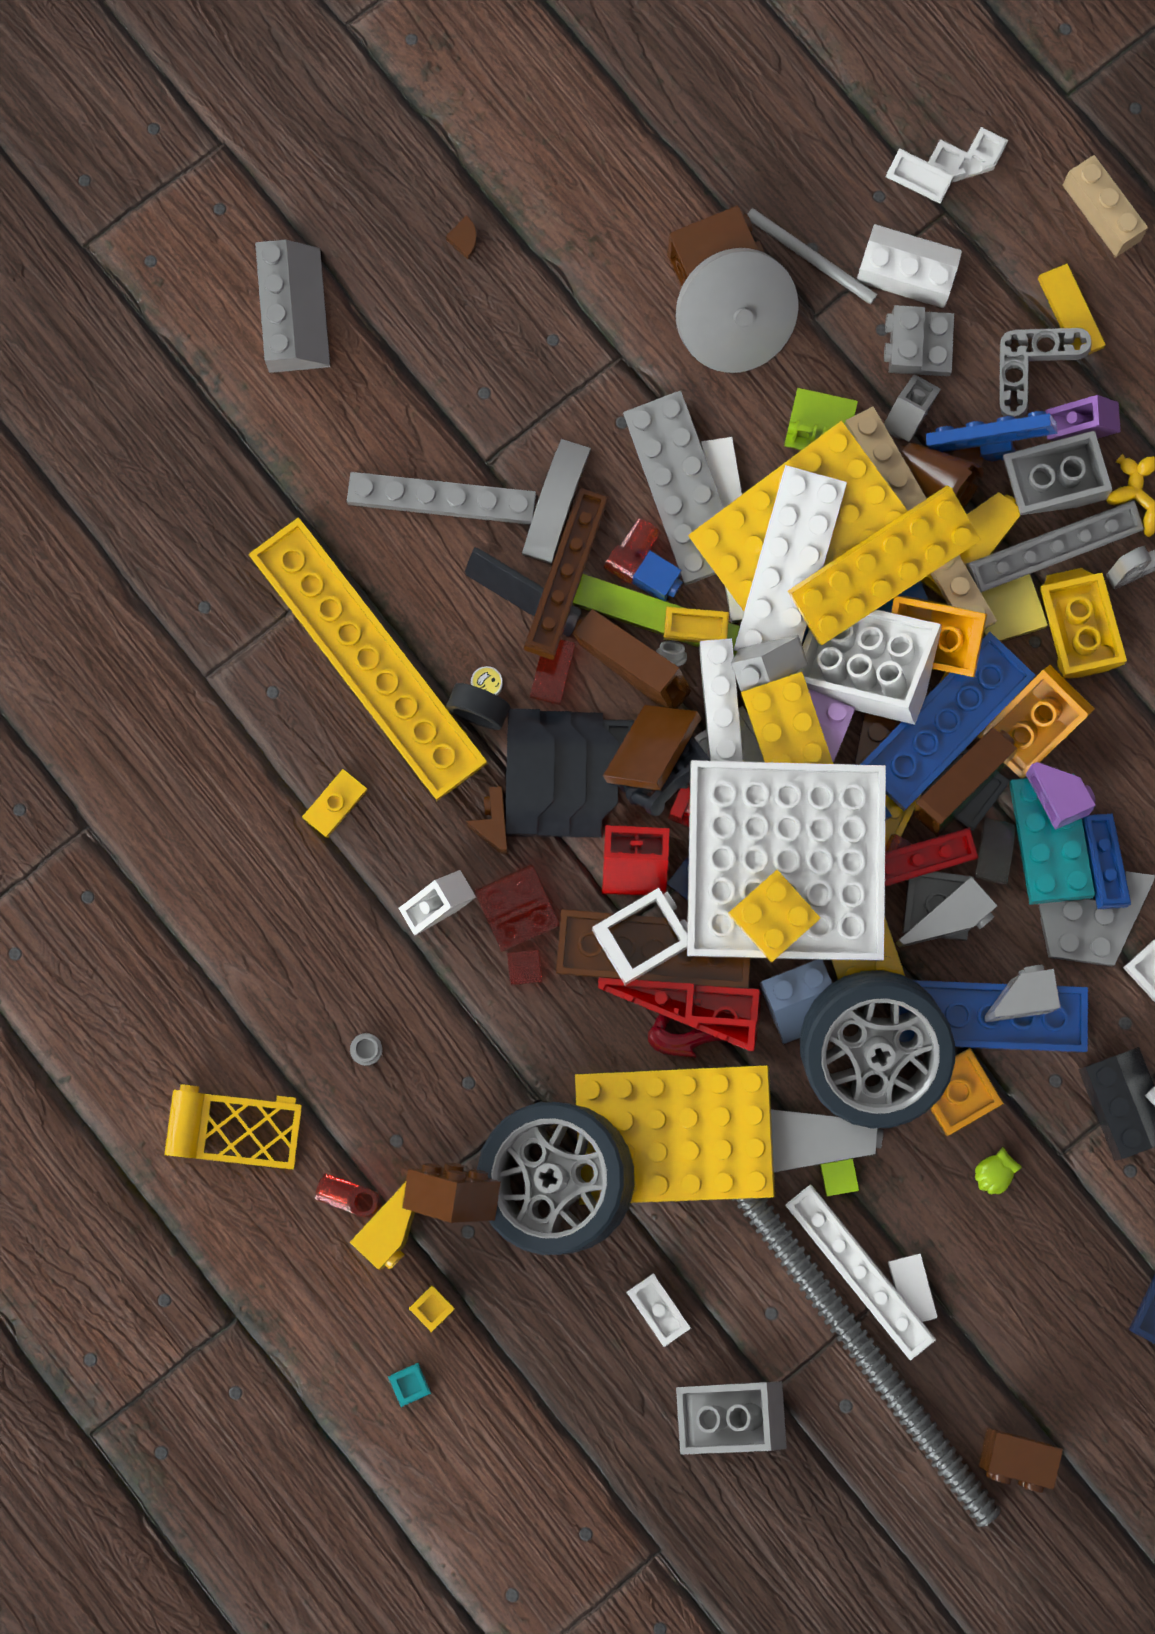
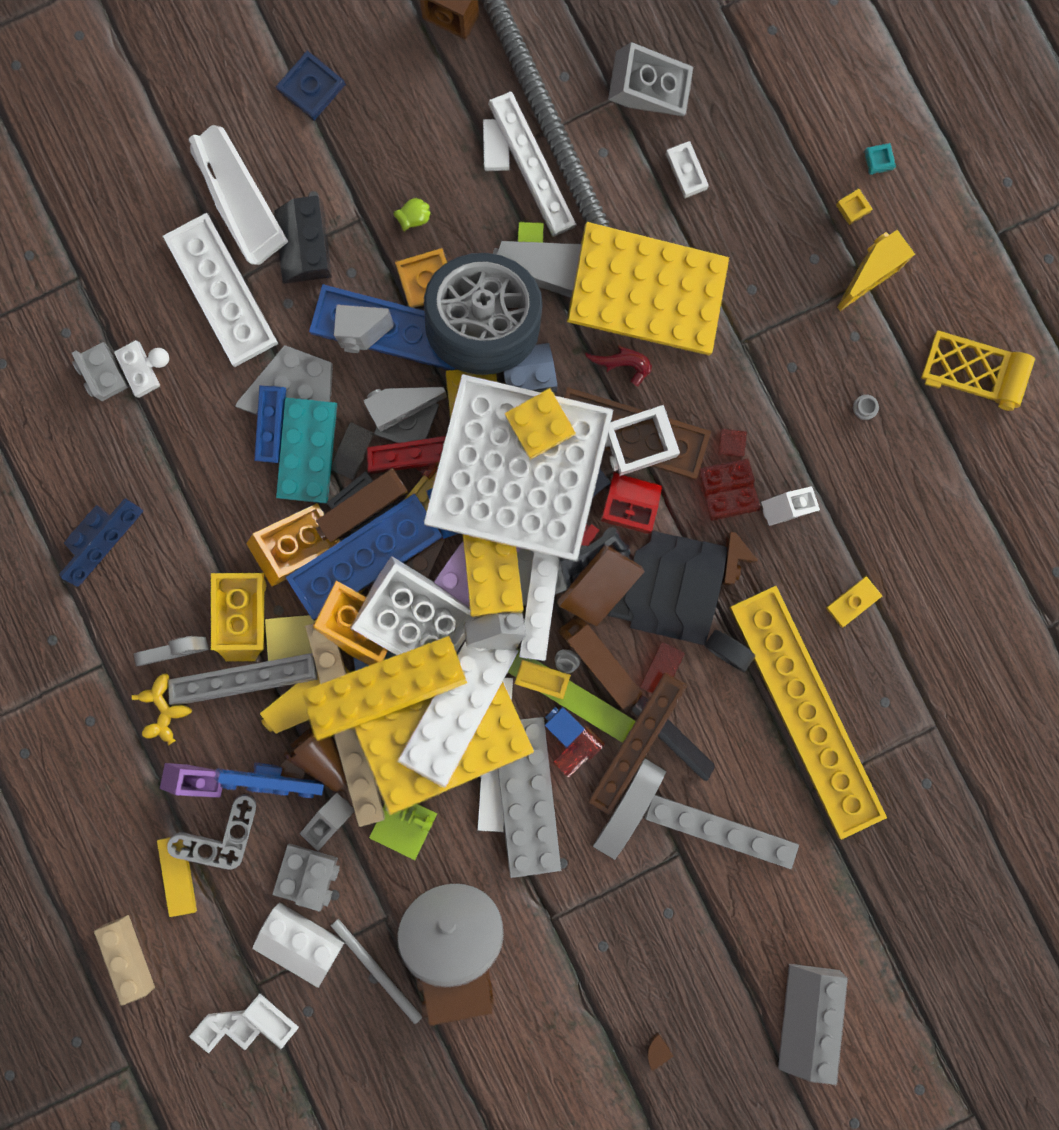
camera: 170 degrees left, 5 degrees up
(345, 1195) = (902, 301): clear red piece -> none
(451, 1193) = (833, 269): reddish brown brick -> none
(487, 679) = (716, 671): light yellow tile -> none
(611, 1168) = (747, 272): wheel -> none
(718, 1011) = (593, 374): red wedge -> none
(1058, 474) = (224, 737): light grey slope -> none
(1061, 794) = (290, 477): medium lavender slope -> none

